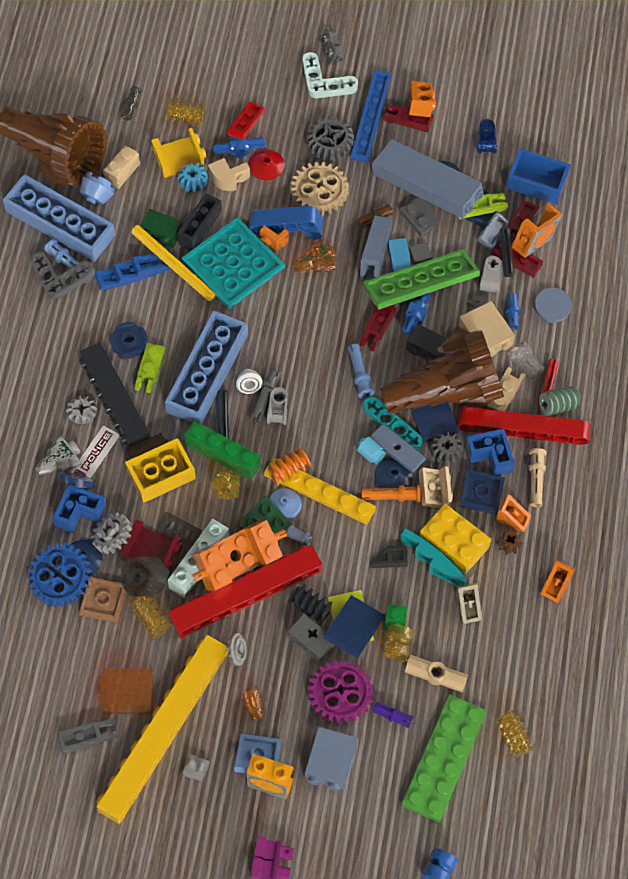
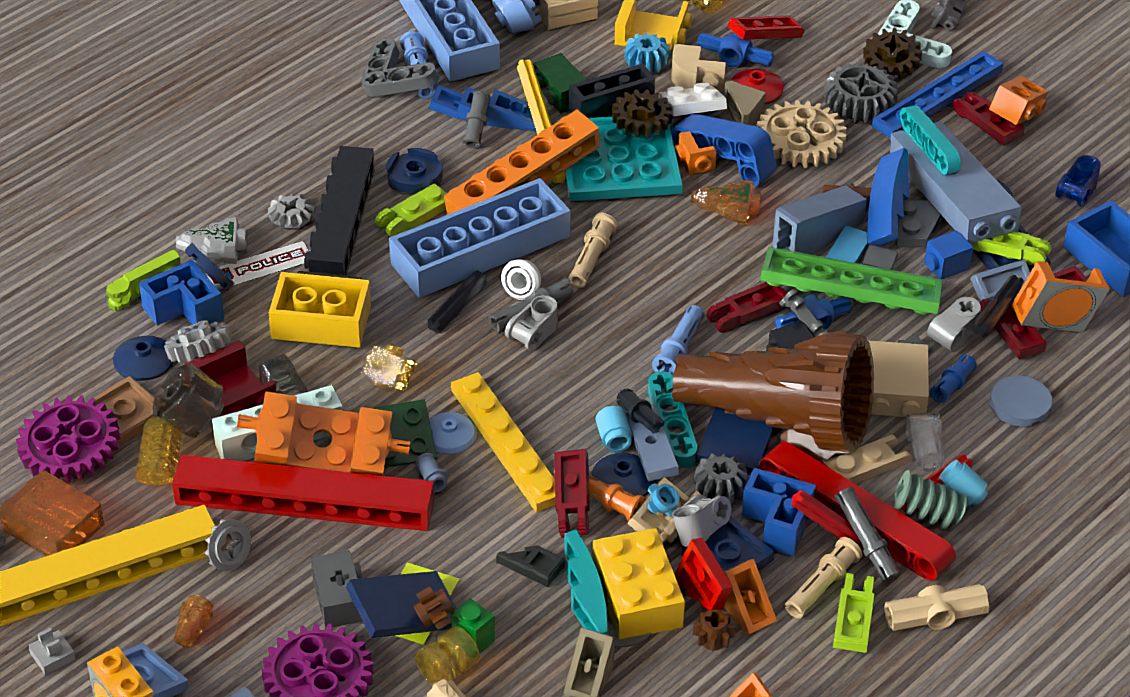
camera: 35 degrees right, 20 degrees down
(43, 510) = (127, 287): none -> lime hinge
(48, 589) = (116, 346): blue gear -> none
(111, 639) = (68, 438): none -> magenta gear
(137, 284) = (476, 119): none -> dark grey pin
(205, 263) = (538, 158): none -> orange brick
(222, 450) = (419, 331): green brick -> none
(230, 229) = (642, 113): none -> dark brown gear
(245, 199) = (694, 100): none -> white plate
(267, 330) = (596, 241): none -> tan pin
(273, 185) = (744, 103): none -> dark tan slope
(288, 465) = (481, 380): orange piece -> none
(311, 603) = (373, 546): black piece -> none
(331, 94) = (905, 52): none -> dark brown gear
(377, 622) = (434, 608): none -> reddish brown gear
(380, 433) = (639, 410): none -> black axle
(382, 503) = (572, 489): none -> dark red hinge
(400, 209) = (887, 197): none -> blue slope
(402, 160) = (930, 140): none -> teal beam
(412, 316) = (803, 313): none -> dark grey piece
(433, 482) = (668, 494): none -> dark azure plate
(455, 230) = (948, 254): none -> blue brick
(460, 482) = (701, 517): none -> light grey piece
(489, 518) = (703, 576): none -> red wing
(522, 444) = (824, 516): none -> red axle
(551, 444) = (873, 545): none -> dark grey pin
(565, 377) = (965, 481): none -> medium azure brick
(566, 489) = (854, 616): none -> lime hinge
(601, 461) = (936, 607): none -> tan piece

